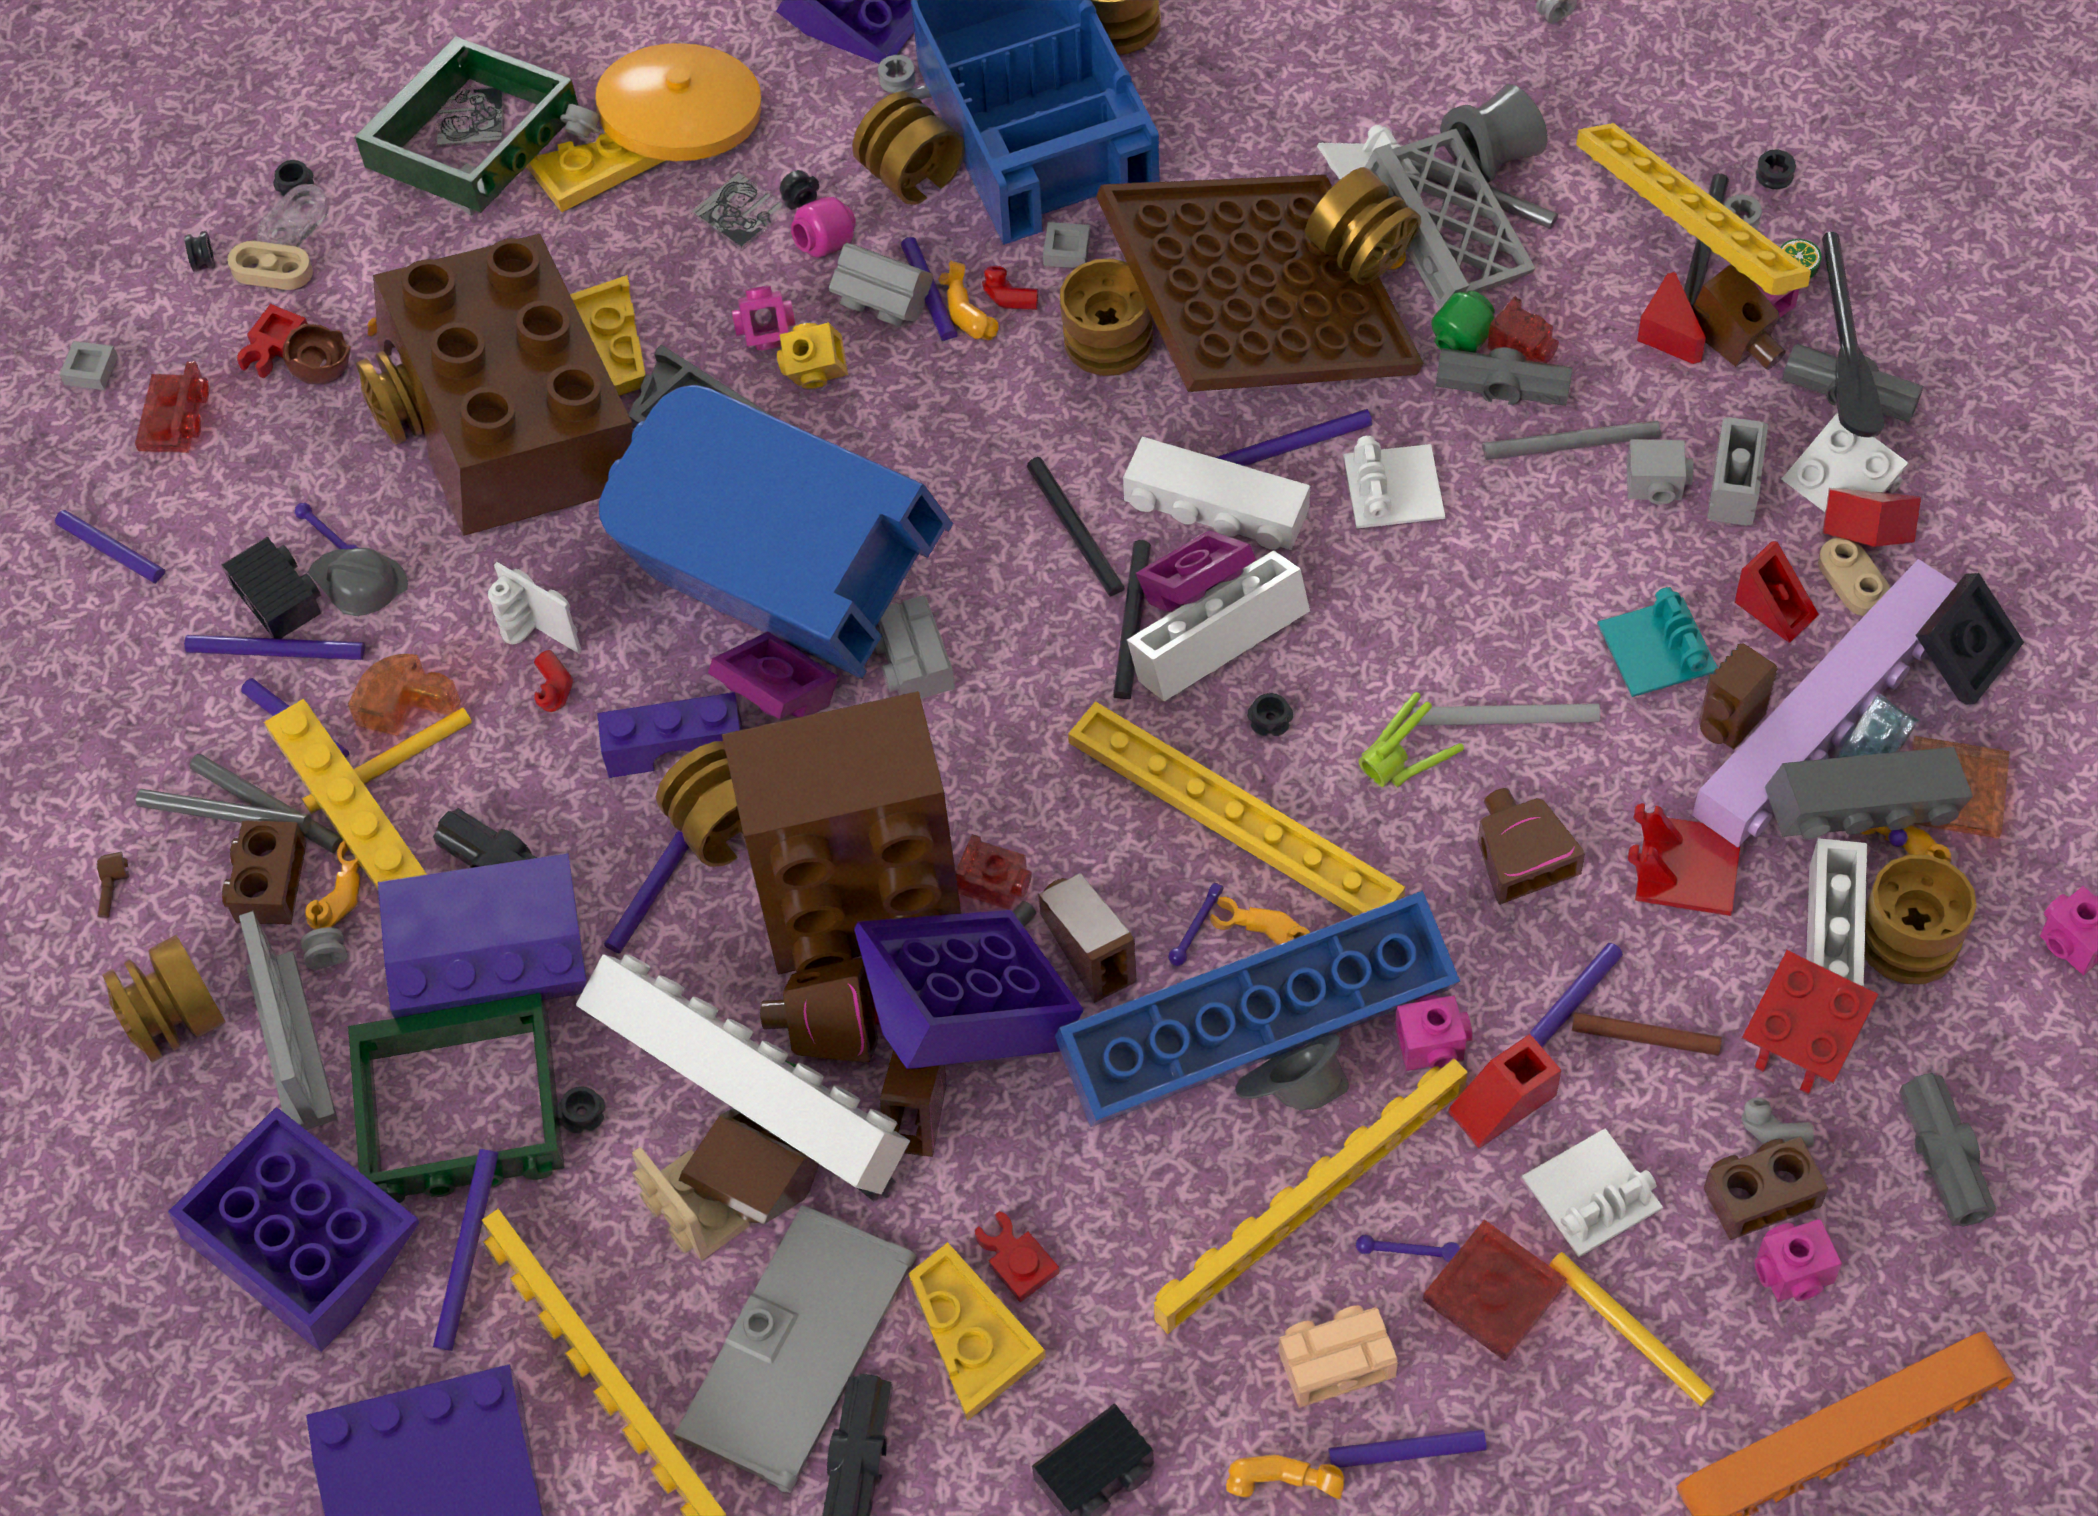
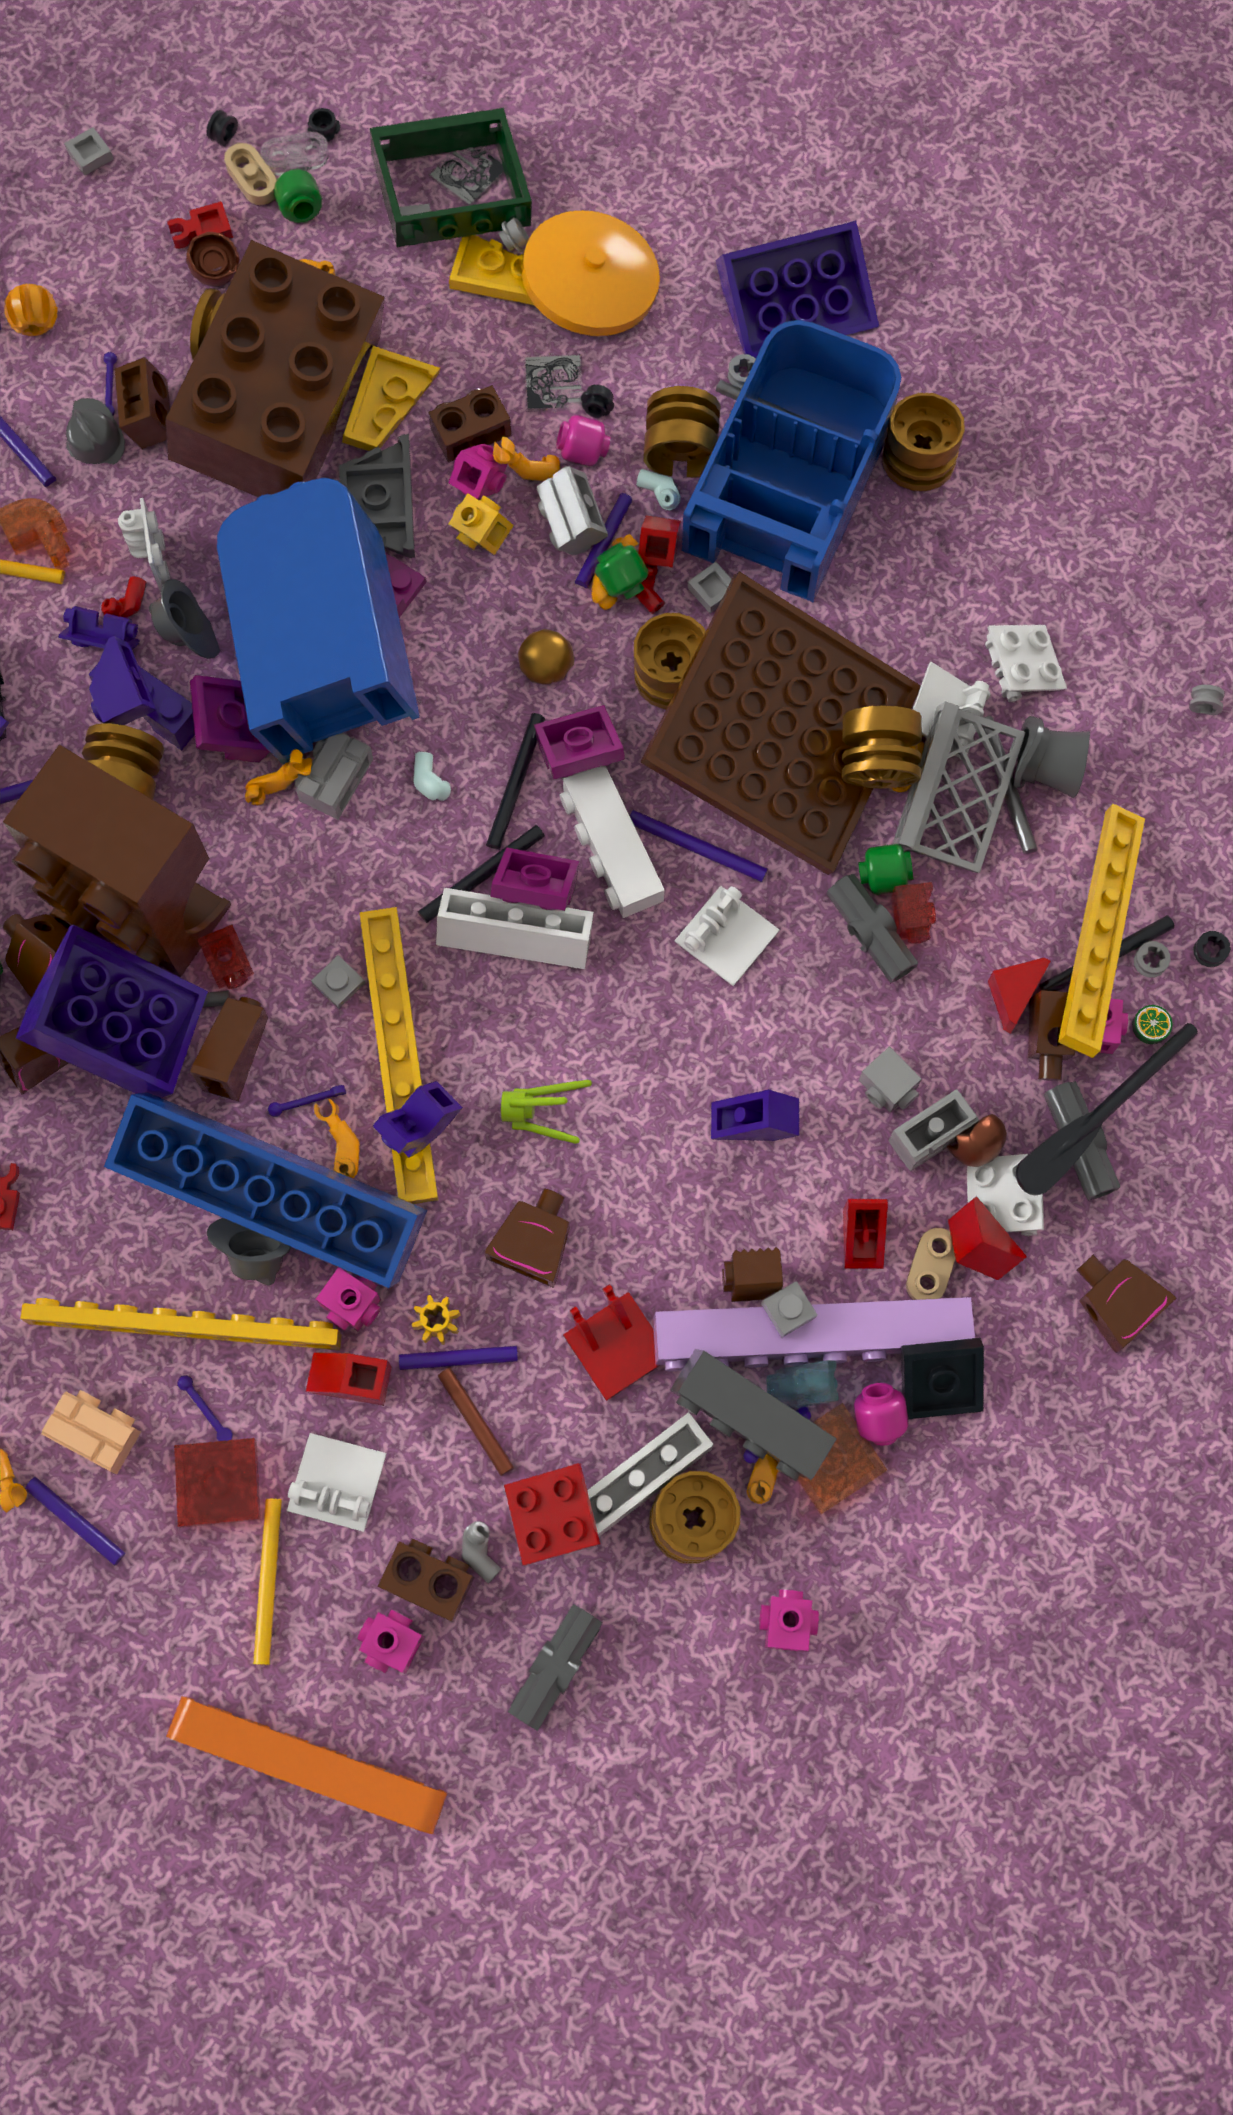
camera: 40 degrees right, 15 degrees up
(171, 411) = (104, 224): clear red bracket -> none
(184, 526) = (30, 309): none -> light orange piece
(272, 587) = (38, 395): black brick -> none
(338, 246) = (298, 196): none -> green head
(388, 509) = (142, 402): none -> reddish brown brick
(546, 731) = (86, 631): none -> dark purple hinge
(624, 653) = (182, 620): none -> dark grey piece
(655, 725) = (119, 686): none -> dark purple slope
(707, 292) = (472, 428): none -> reddish brown brick
(802, 283) = (522, 466): none -> light orange arm
(875, 678) = (279, 780): none -> light orange arm
(931, 209) = (663, 488): none -> light aqua arm
(982, 286) = (621, 571): none -> green head
(984, 243) = (659, 541): none -> red brick
(987, 411) = (545, 657): none -> pearl gold hair
(1000, 589) = (426, 781): none -> light aqua arm
(1102, 441) = (579, 742): none -> magenta plate
(1111, 808) = (338, 981): none -> light grey plate
(1270, 705) = (492, 1004): black plate -> none
(1324, 832) = (418, 1120): none -> dark purple brick
(1384, 90) = (1024, 659): none -> white hinge
(1511, 714) = (624, 1147): light grey bar -> none
(1520, 982) = (438, 1329): none -> yellow gear
(1571, 440) = (868, 1008): flat silver bar -> none
(1586, 592) = (755, 1117): none -> dark purple slope
(1657, 644) = (761, 1192): teal hinge -> none
(1787, 448) = (981, 1144): none -> copper hair
(1799, 688) = (789, 1309): none -> light grey plate
(1956, 710) = (881, 1414): none -> dark pink head
(2025, 465) = (1122, 1300): none -> reddish brown torso

